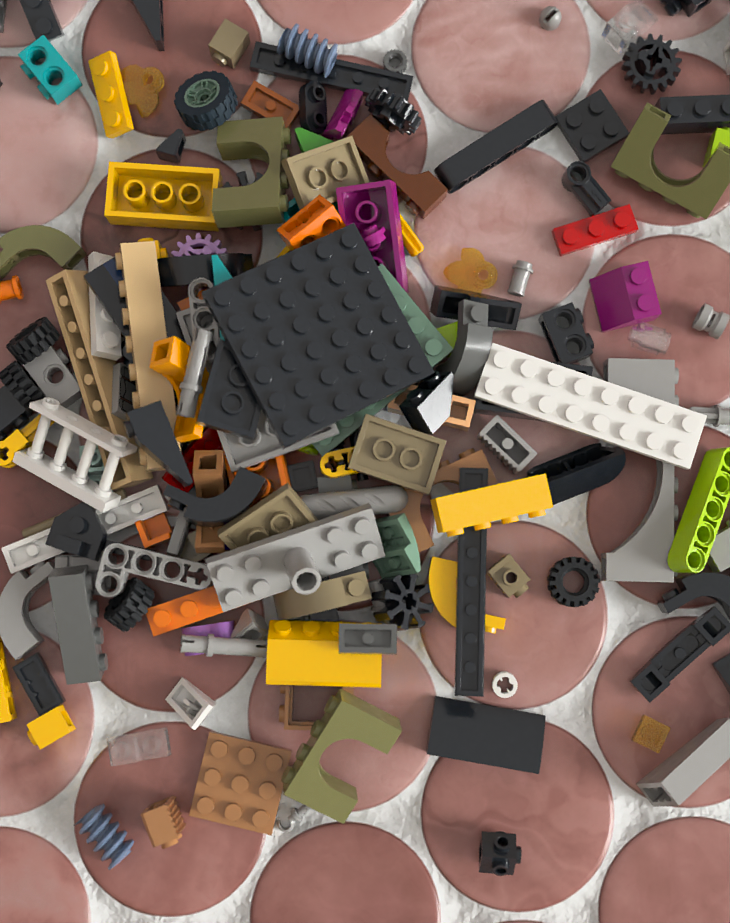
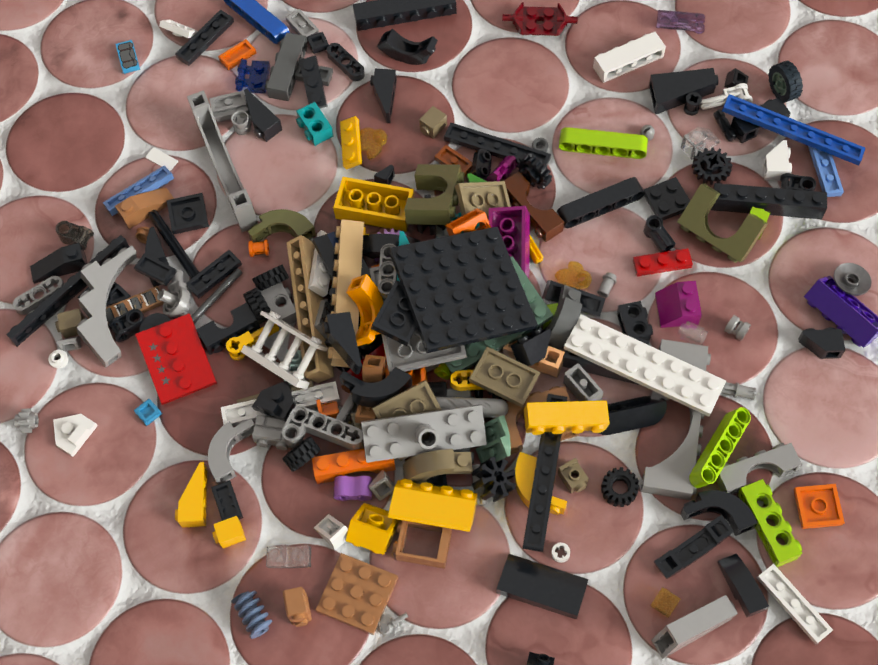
camera: 15 degrees right, 20 degrees down
(77, 624) = (263, 460): dark grey brick -> none
(194, 372) = (372, 306): light grey pin -> none
(206, 100) = (412, 151): black wheel -> none
(223, 646) = (359, 488): light grey pin -> none
(243, 692) = (372, 529): none -> yellow slope
(307, 50) = (483, 129): sand blue piece -> none
(343, 719) = (406, 592): olive arch -> none
(368, 639) = (465, 494): dark grey plate -> none
(373, 235) = (509, 237): magenta plate -> none
(487, 46) = (603, 143): none -> lime beam

